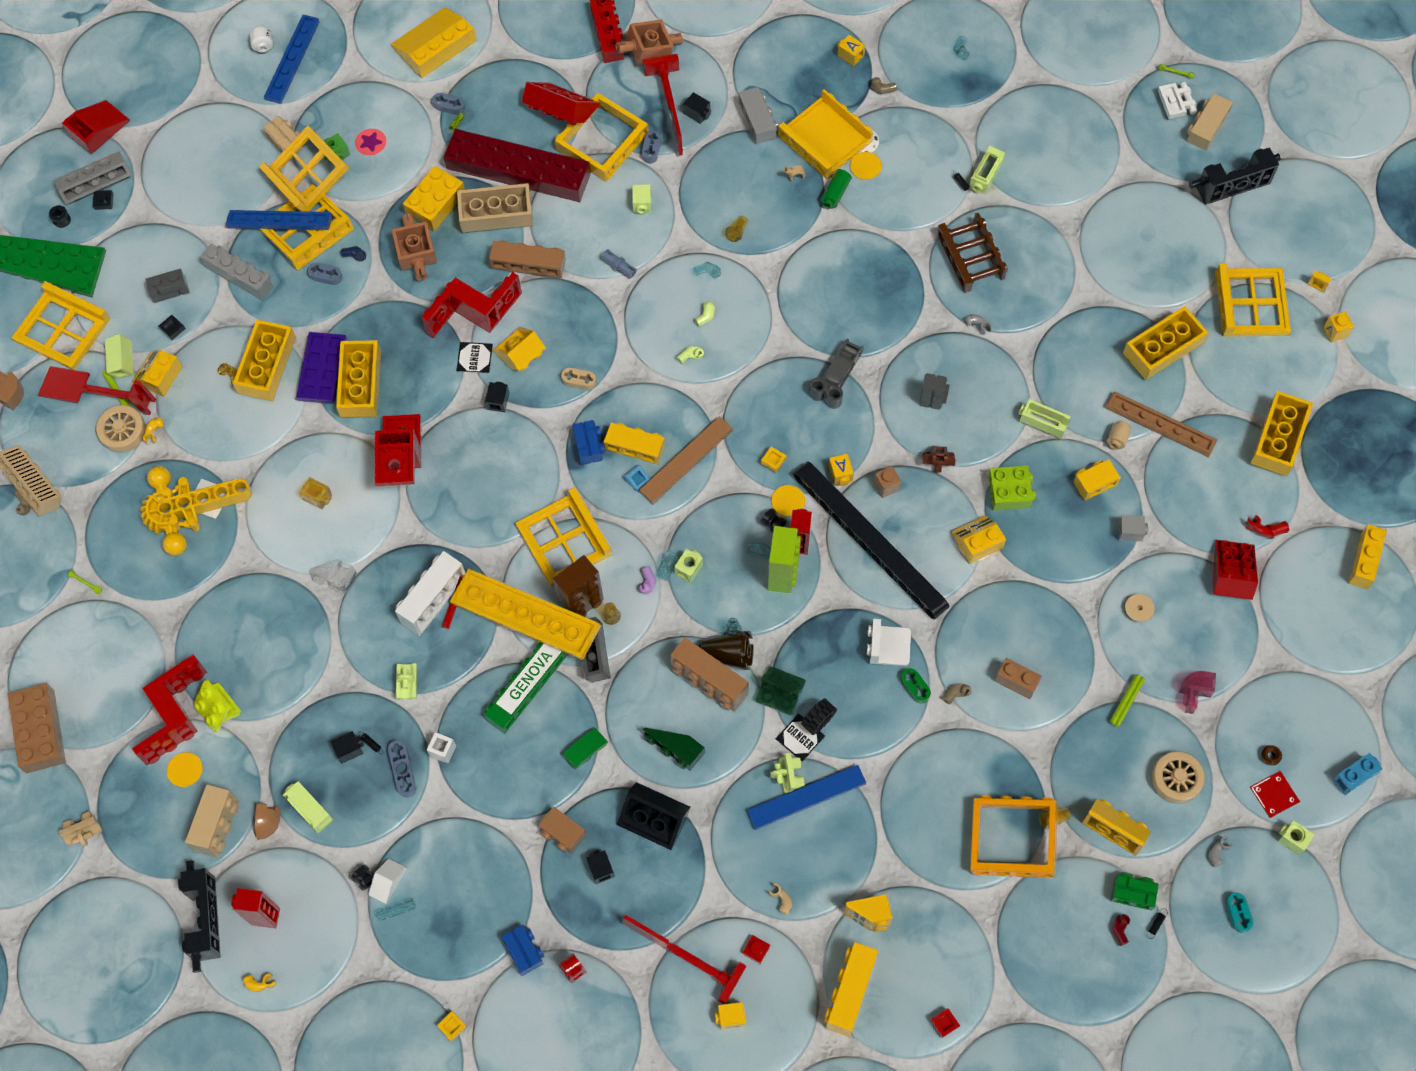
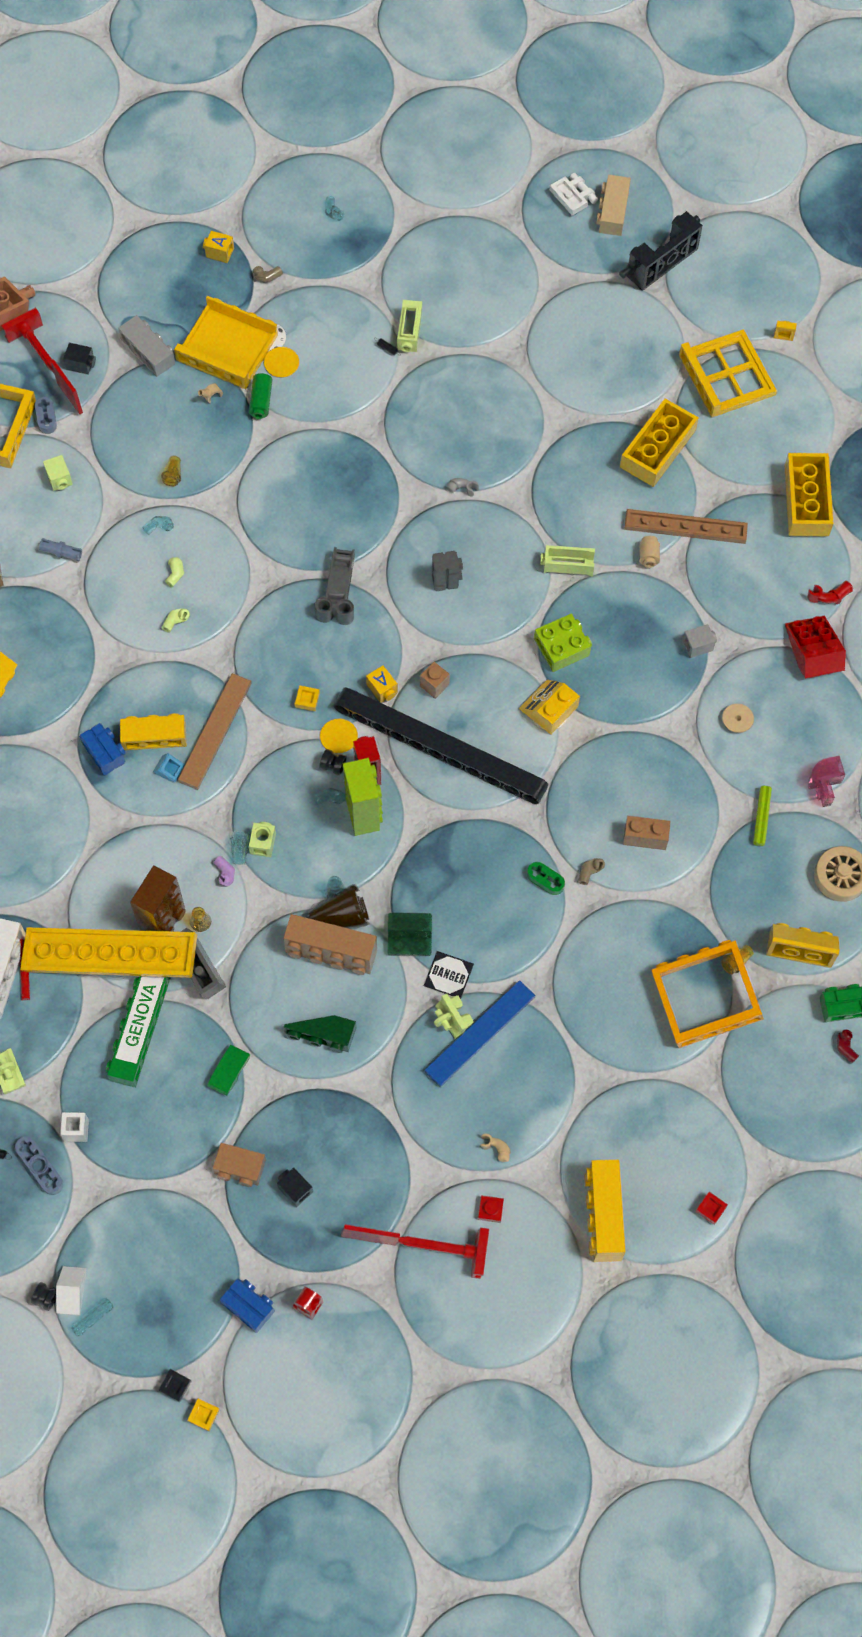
camera: 25 degrees left, 0 degrees up
(438, 992) = (174, 1385): none -> black plate
(578, 378) = (65, 685): tan beam -> none
(587, 524) = (138, 836): yellow window -> none
(653, 815) = (329, 1112): black slope -> none
(731, 1015) = (492, 1287): yellow brick -> none
(818, 716) = (461, 945): black tyre -> none
(870, 912) = (594, 1126): yellow slope -> none
(888, 644) = (502, 846): white bracket -> none
(938, 458) = (477, 637): copper piece -> none
(960, 264) = (418, 431): reddish brown fence -> none
(1096, 479) = (645, 603): yellow brick -> none
(1162, 67) = (544, 165): lime hinge -> none
(1338, 326) = (821, 369): yellow brick -> none

